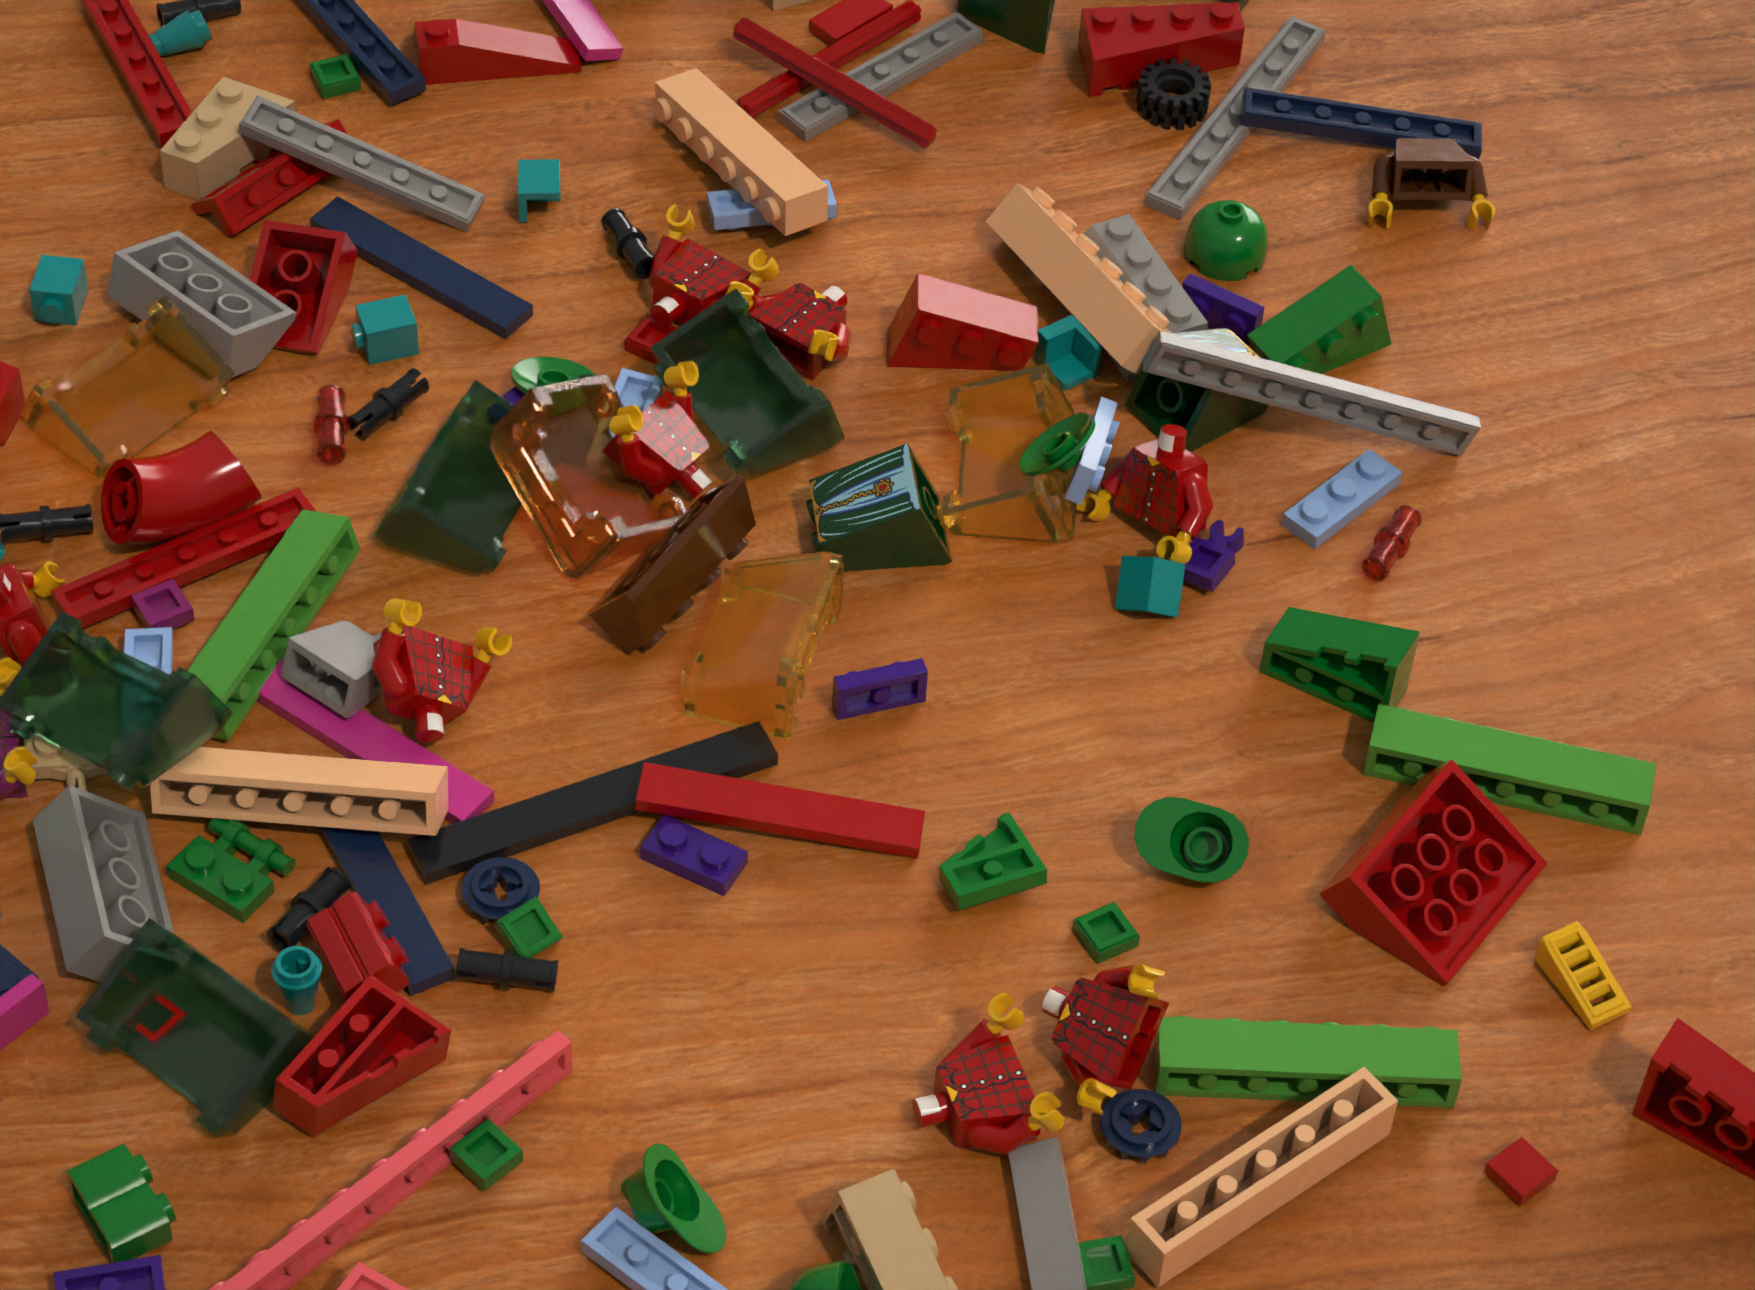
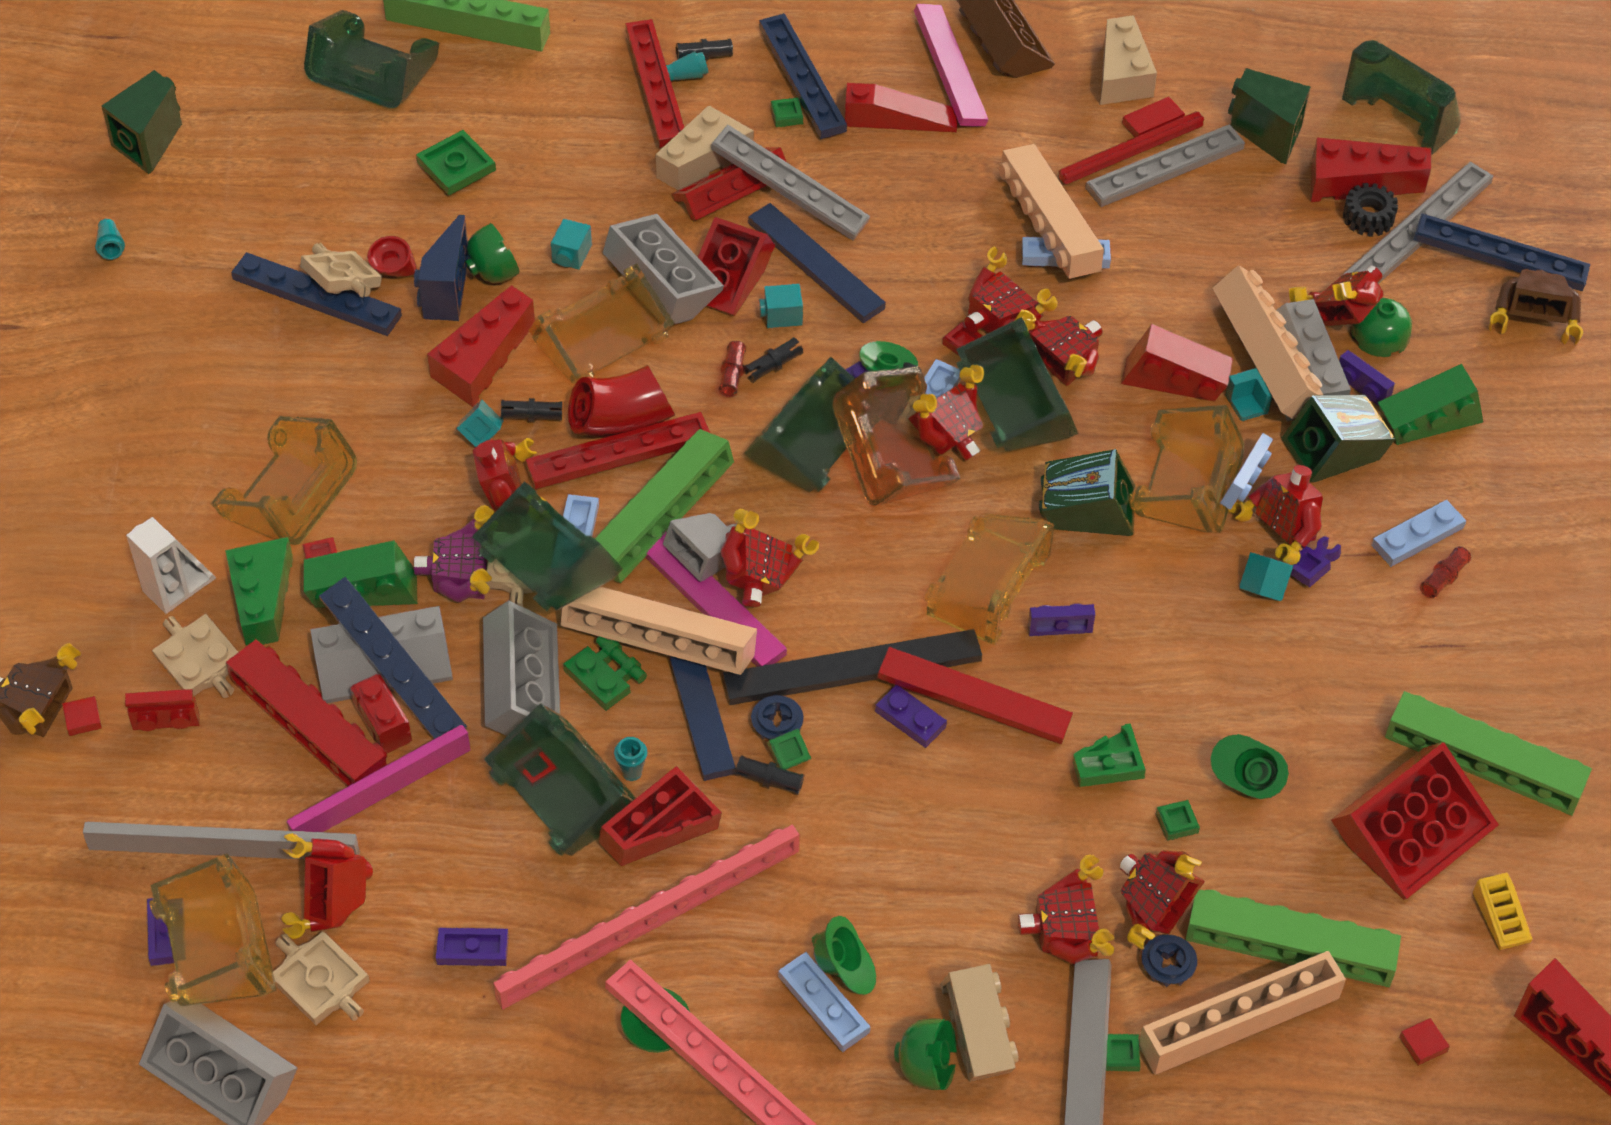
camera: 15 degrees right, 5 degrees up
(121, 1204) = (489, 889): green brick -> none
(163, 606) = (596, 481): magenta plate -> none
(304, 905) = (649, 710): black pin -> none
(357, 946) = (675, 743): red brick -> none
(486, 1154) = (729, 899): green plate -> none
(537, 183) = (908, 213): teal panel -> none
(628, 242) = (961, 265): black pin -> none
(677, 566) = (940, 511): reddish brown slope -> none
(835, 82) = (1129, 168): red axle -> none
(1058, 446) = (1221, 466): green dish -> none
(1173, 207) = (1346, 299): none -> red torso
(1310, 393) = (1410, 456): light grey tile -> none
(1341, 659) = (1386, 653): green wedge -> none

